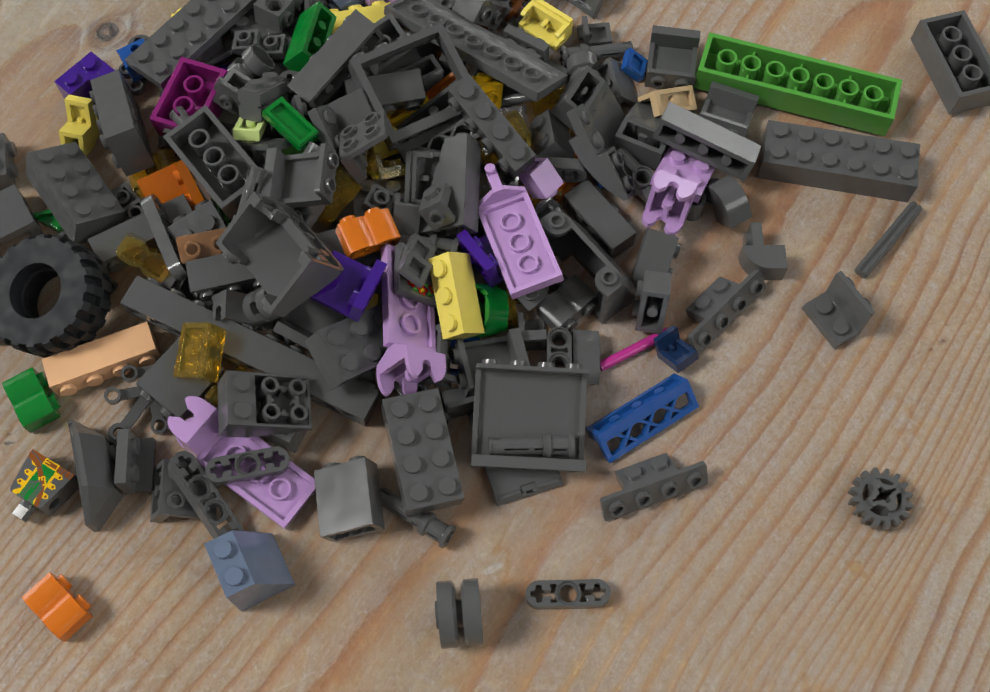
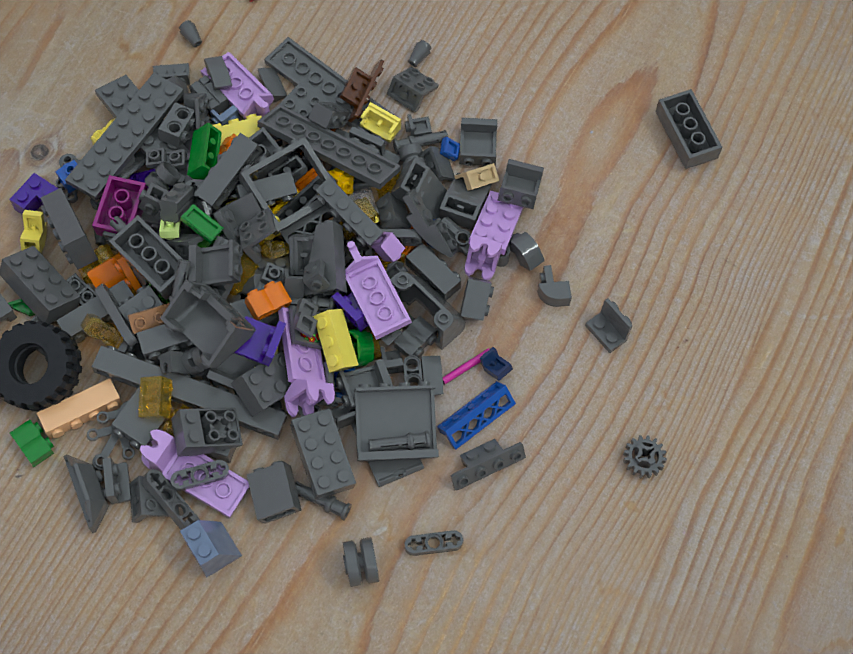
camera: 10 degrees left, 0 degrees up
(42, 486) = (51, 504): torso -> none
(58, 606) = (77, 586): orange brick -> none
(653, 301) = (476, 331): dark grey brick -> none
(706, 141) = (507, 208): dark grey brick -> none
(720, 306) = (526, 329): dark grey bracket -> none
(801, 84) = (573, 155): bright green brick -> none
(839, 161) = (605, 212): dark grey brick -> none
(888, 239) = (644, 268): dark grey axle -> none

